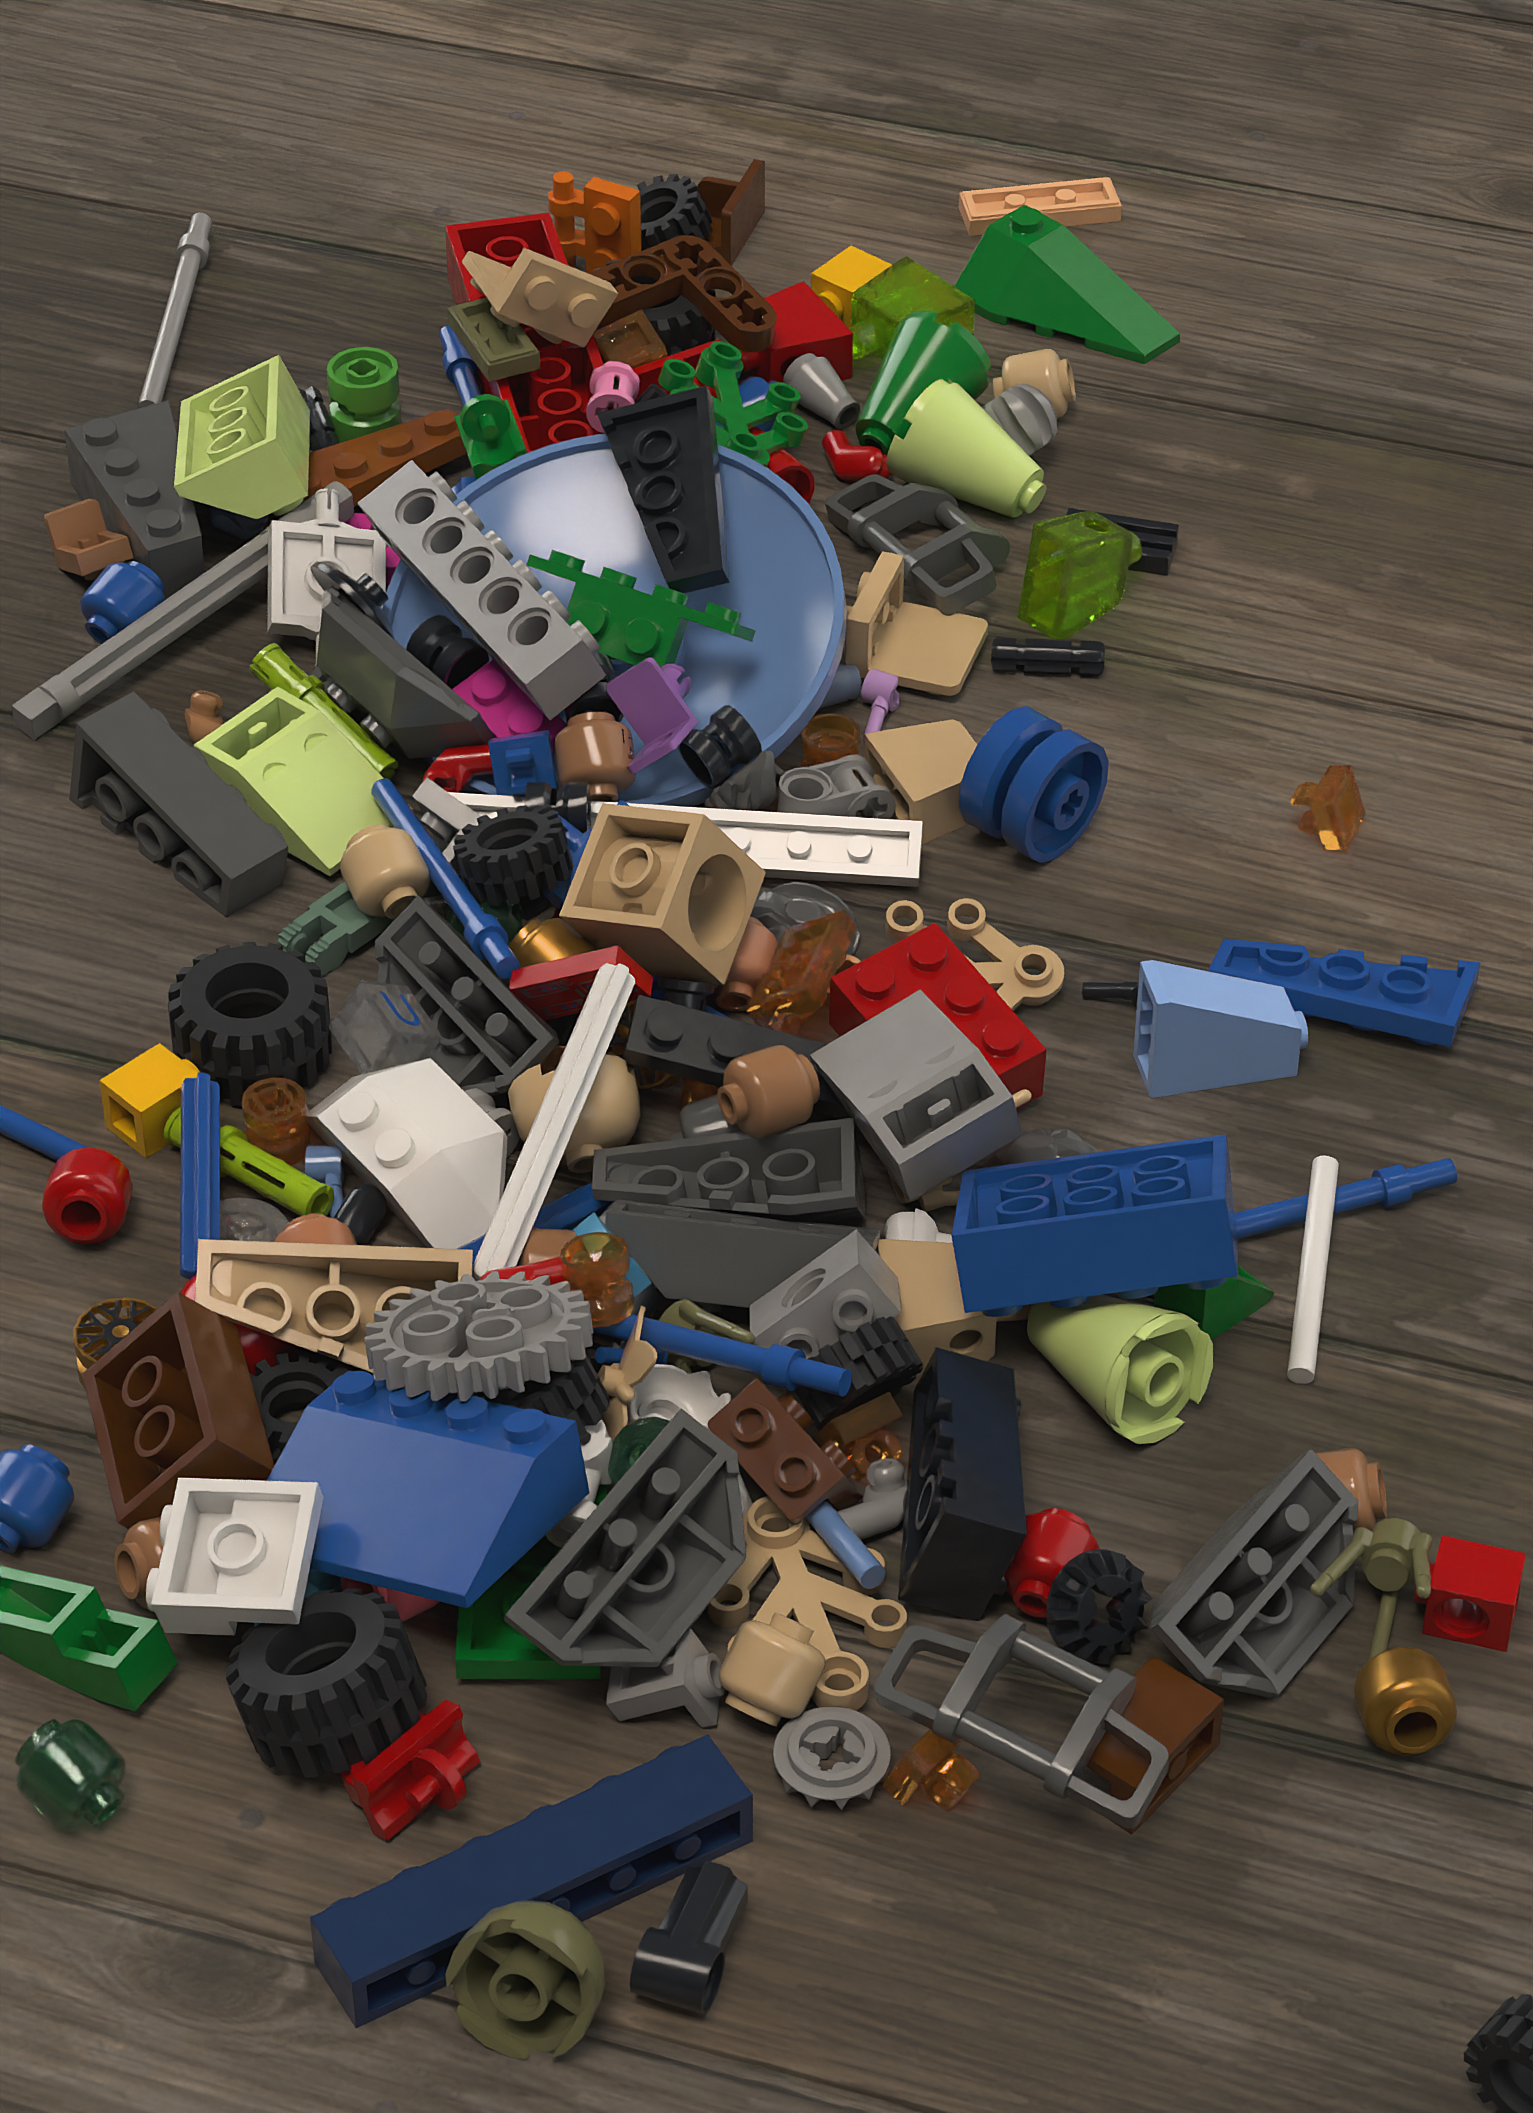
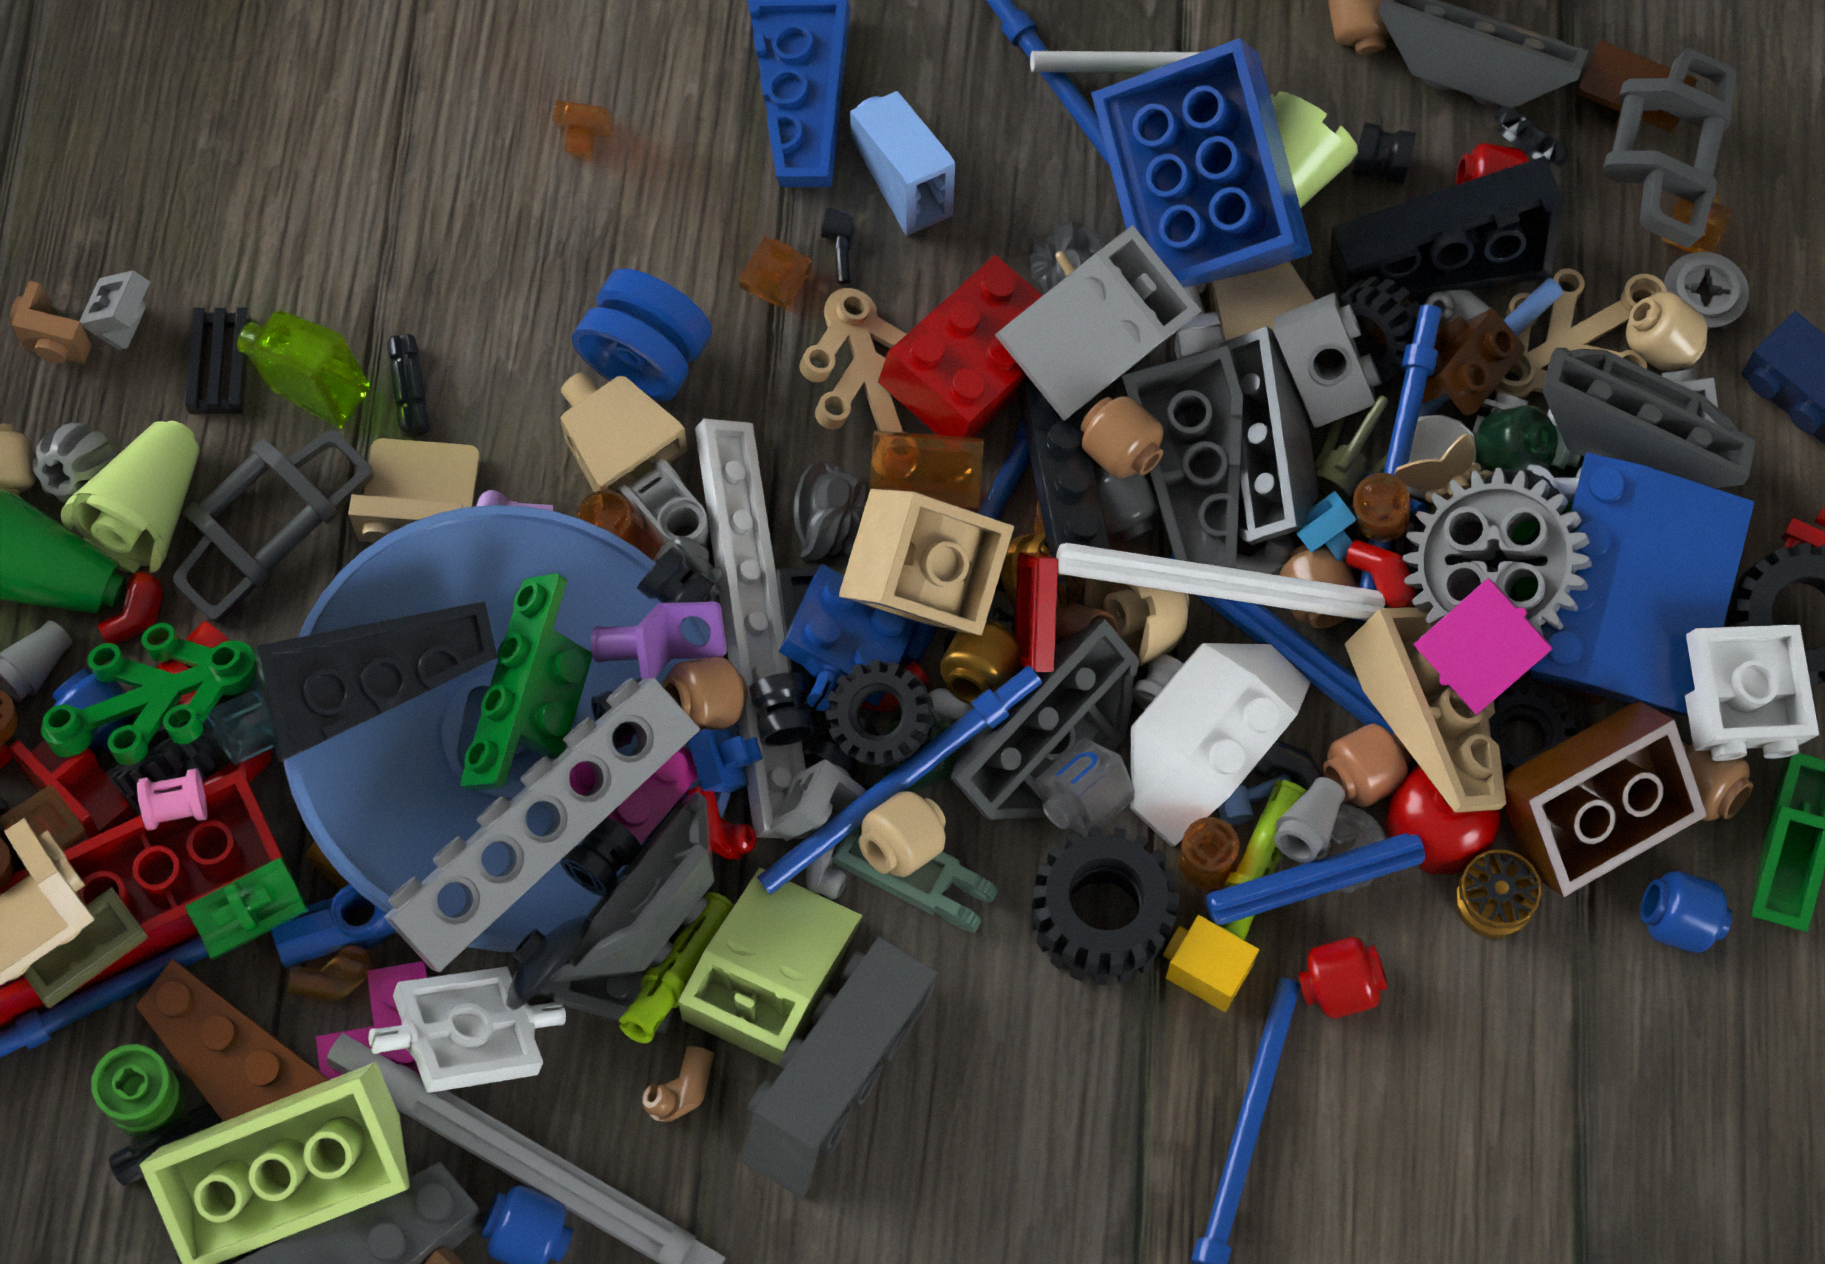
camera: 105 degrees left, 25 degrees up
(263, 1182) = (1309, 822): none -> light grey cone
(380, 1301) = (1483, 646): none -> dark pink piece
(1107, 933) = (775, 272): none -> clear orange tile
(1120, 1471) = (1372, 149): none -> black wheel
(1182, 424) = (47, 334): none -> medium nougat bracket
(1184, 468) = (116, 308): none -> light grey bracket

